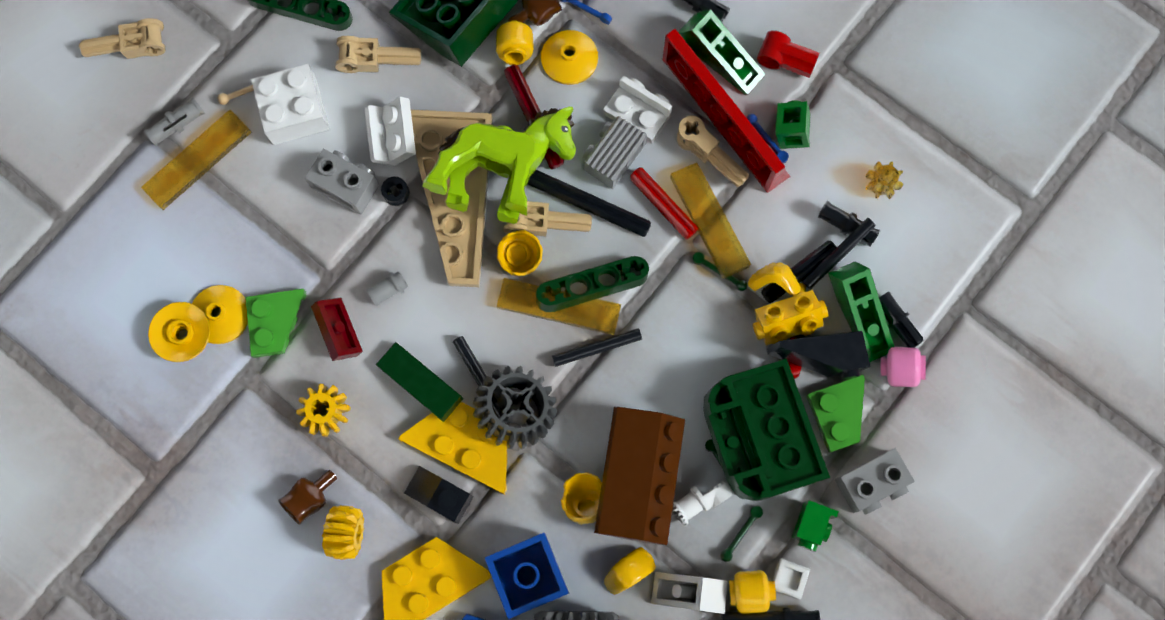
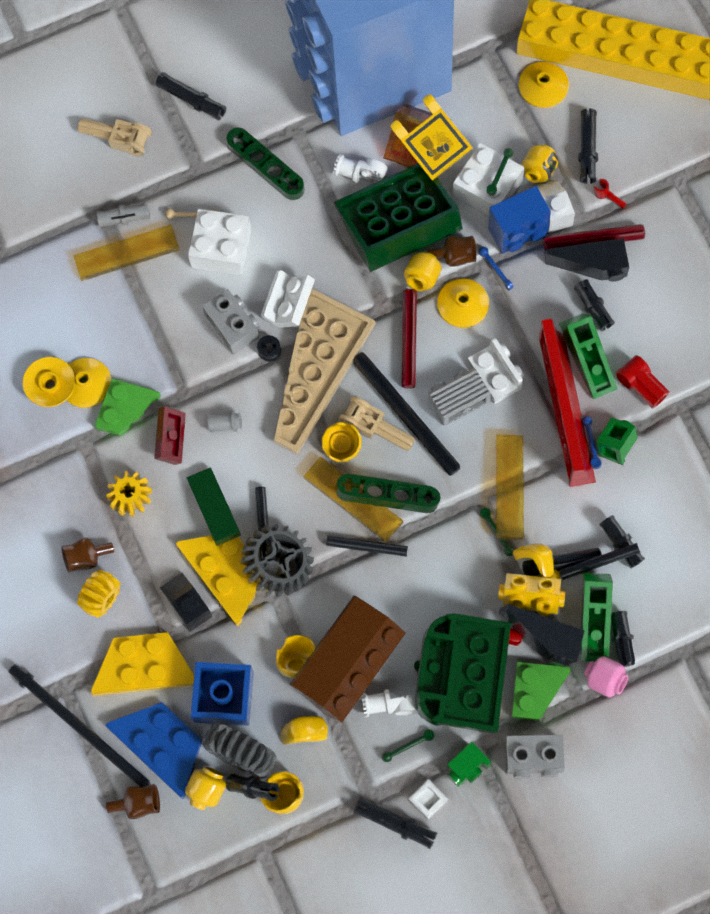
camera: 30 degrees right, 5 degrees down
(366, 55) = (300, 228): tan connector -> none
(503, 153) = (367, 356): lime animal -> none
(663, 203) = (479, 456): red axle -> none
(689, 592) = (343, 769): white slope -> none
(707, 148) = (536, 429): tan connector -> none
(751, 591) = (390, 791): yellow head -> none
(886, 172) = (663, 522): clear yellow gear -> none

